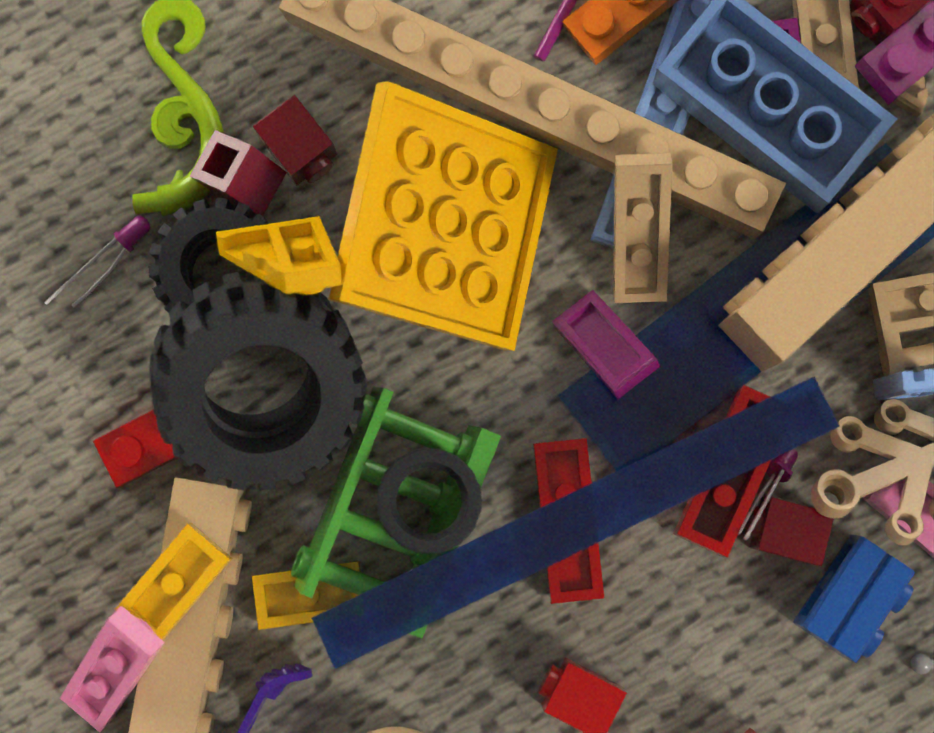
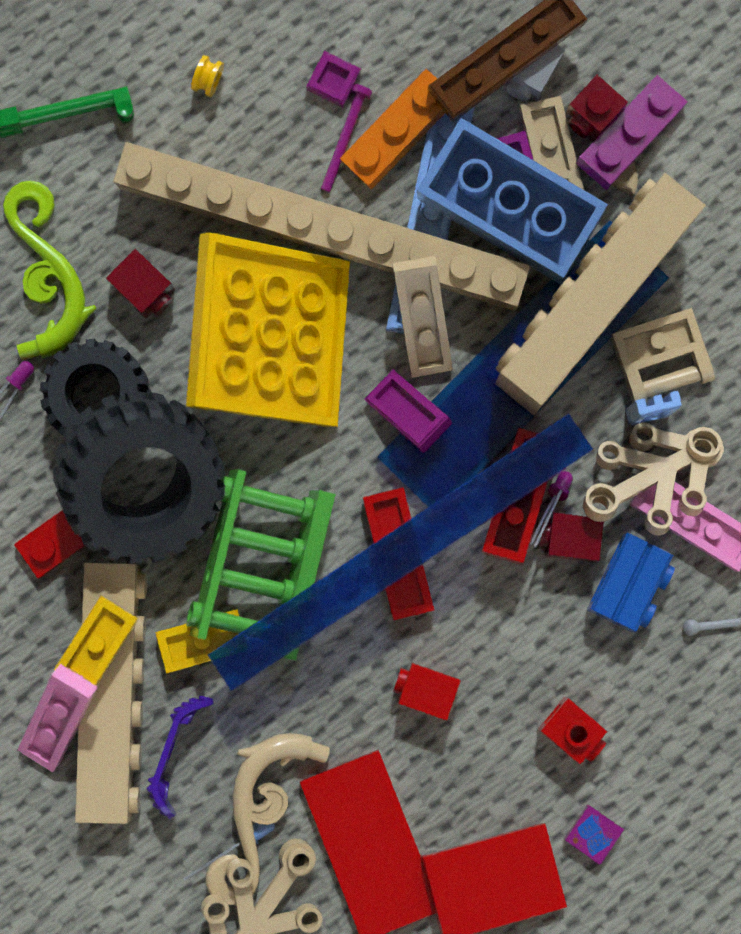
camera: 10 degrees left, 0 degrees up
(238, 172) = (99, 316): dark red brick -> none
(285, 254) = (148, 376): yellow wing -> none
(429, 542) = (294, 520): black tyre -> none

